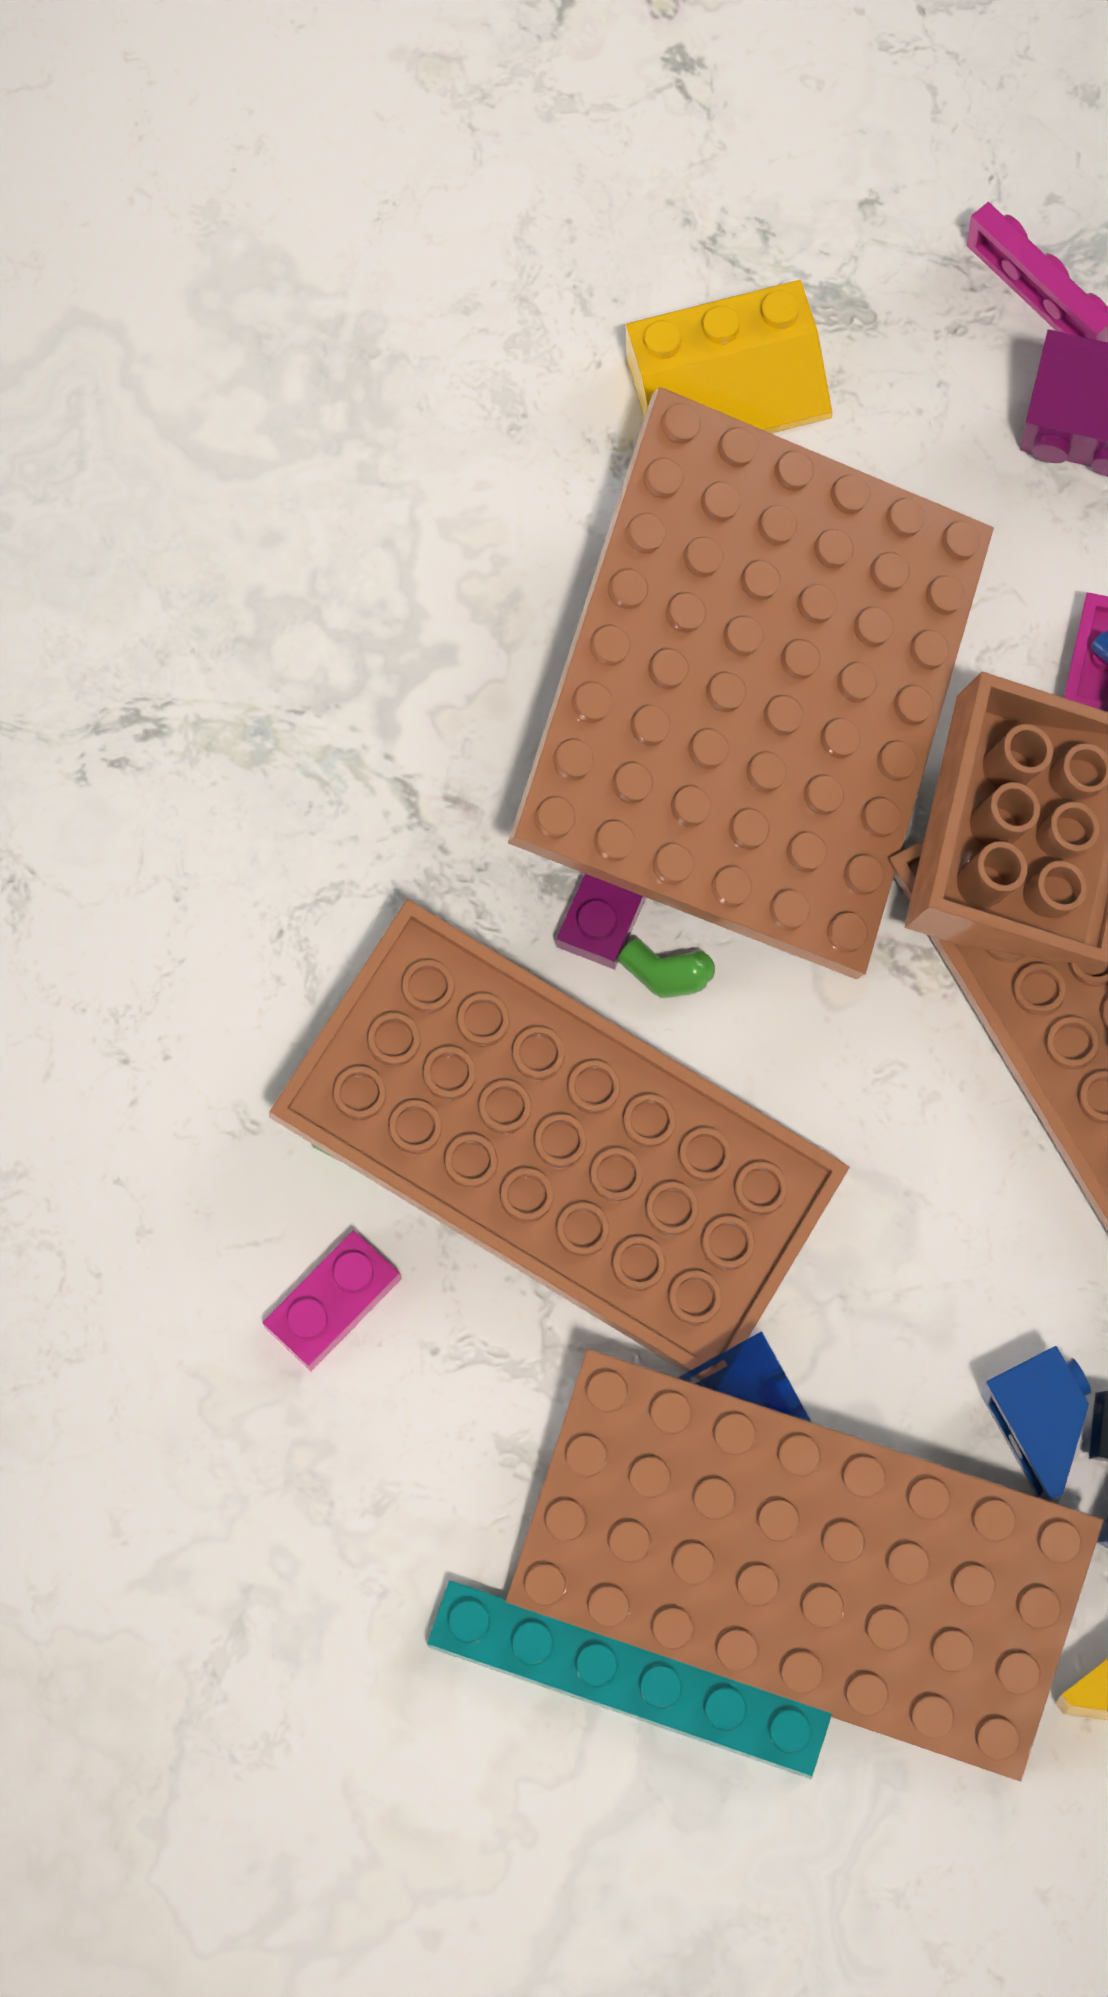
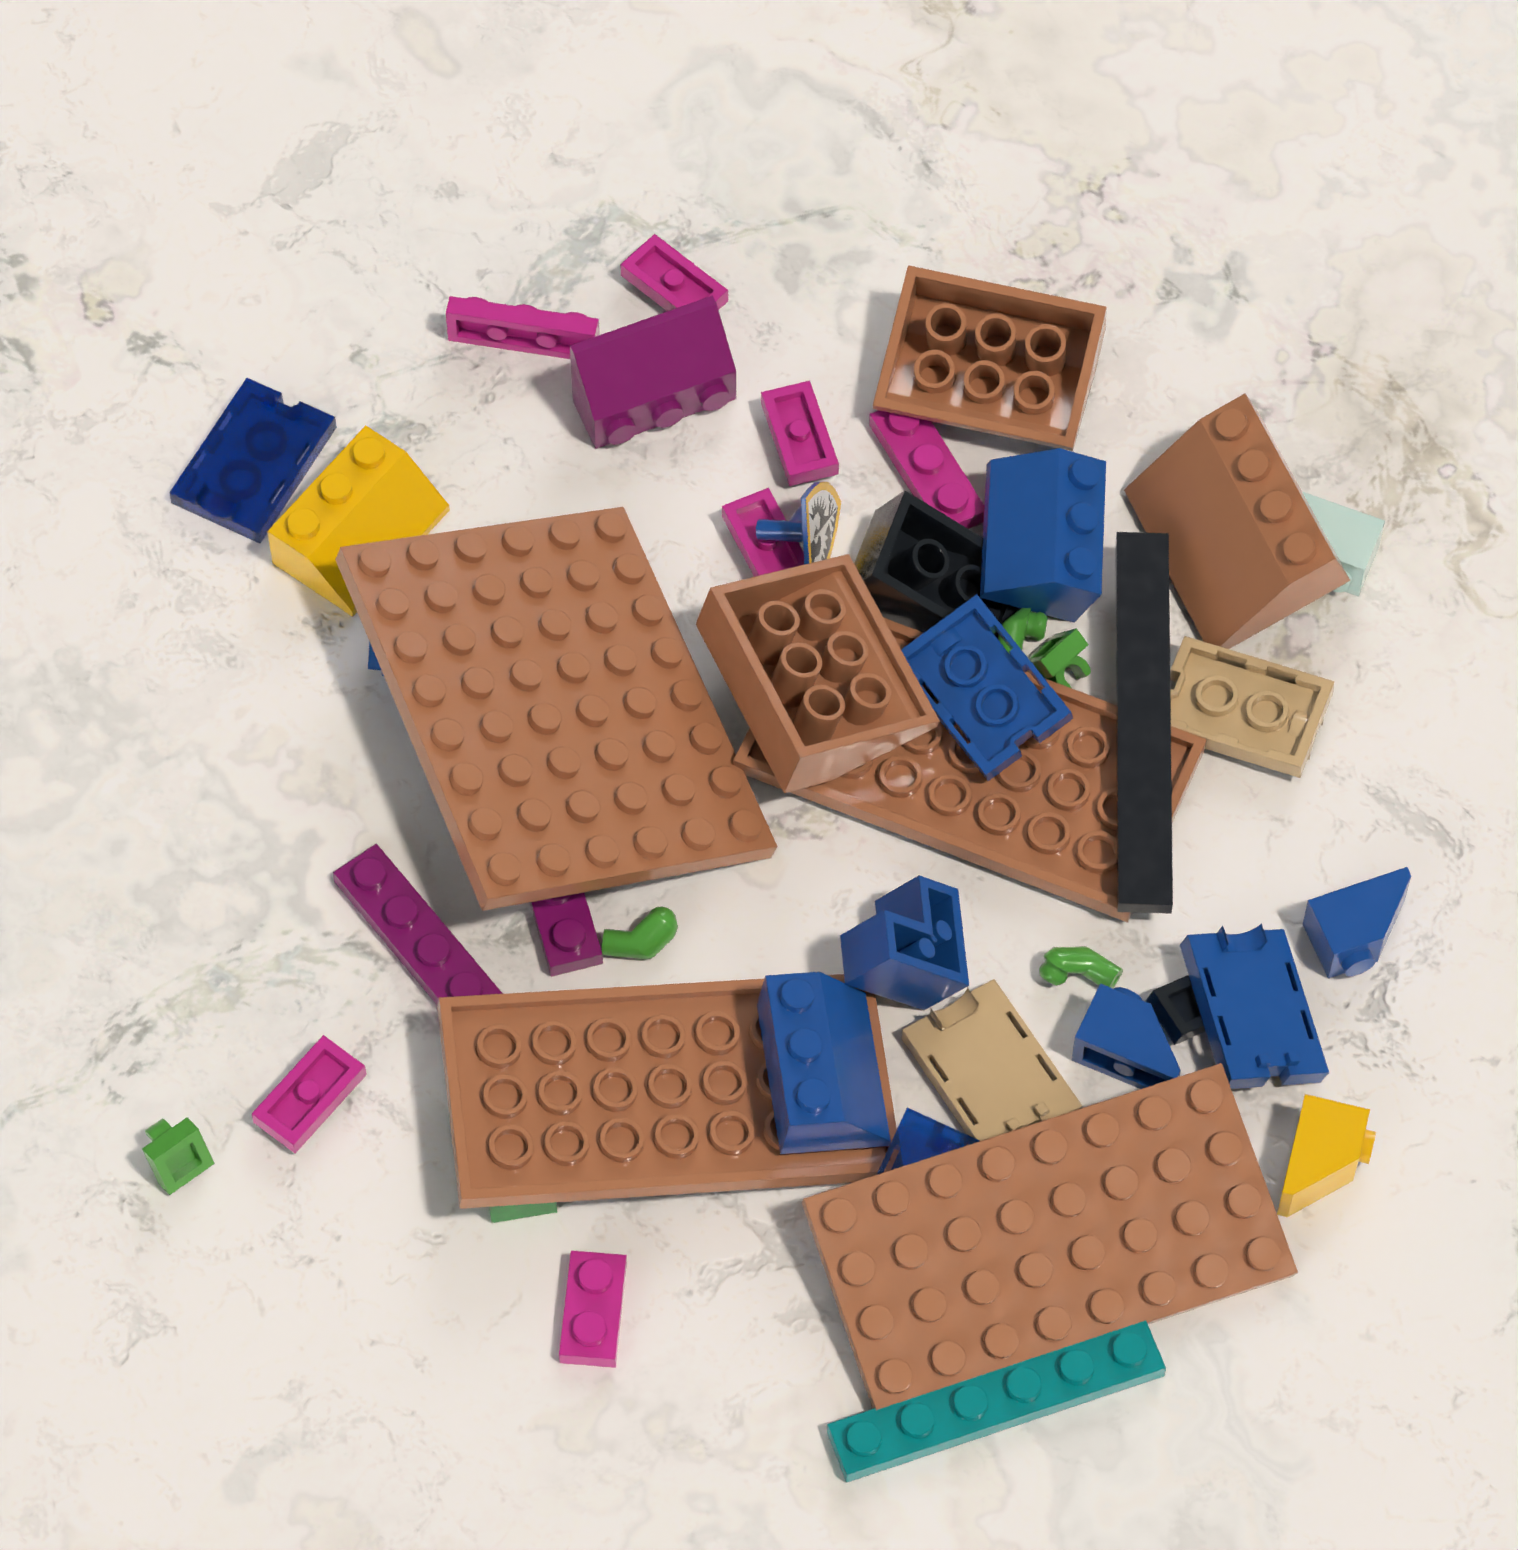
camera: 45 degrees left, 10 degrees down
(79, 872) = (176, 1153): none -> bright green tile
(242, 902) = (309, 1094): none -> dark pink plate
(464, 817) = (411, 927): none -> magenta plate
(686, 243) = (250, 459): none -> clear blue piece
(719, 1229) = (821, 1064): none -> blue slope
(892, 1347) = (988, 1064): none -> tan piece
(903, 1176) = (910, 946): none -> blue brick
(1066, 1302) = (1078, 960): none -> bright green arm

